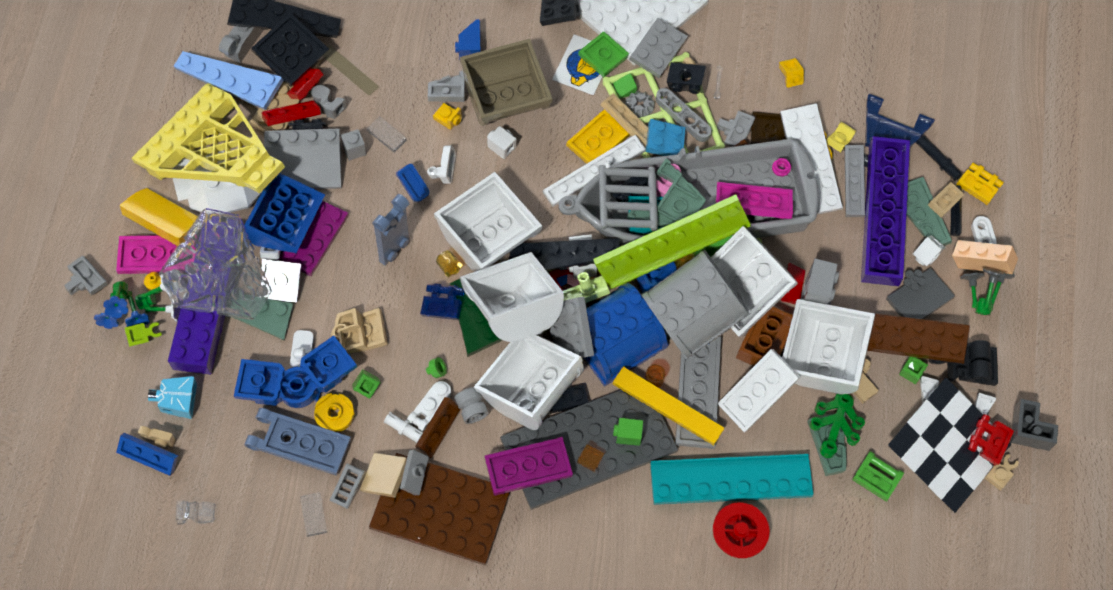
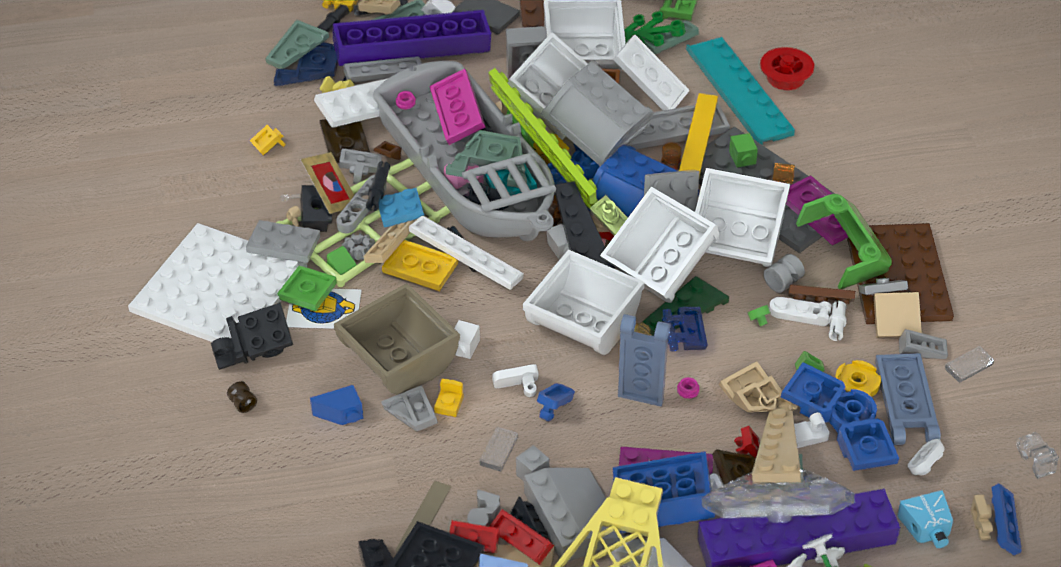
camera: 105 degrees left, 20 degrees down
(232, 425) = (926, 457): none -> white plate
(261, 293) = (778, 450): none -> tan wing
(307, 302) = (748, 441): none -> red tile
(384, 279) = (688, 388): none -> dark pink plate
(473, 475) = (871, 252): none -> bright green windscreen
(694, 126) = (376, 191): none -> black pin
(706, 88) = (328, 181): none -> sticker
(908, 118) = (295, 44): none -> sand green wing

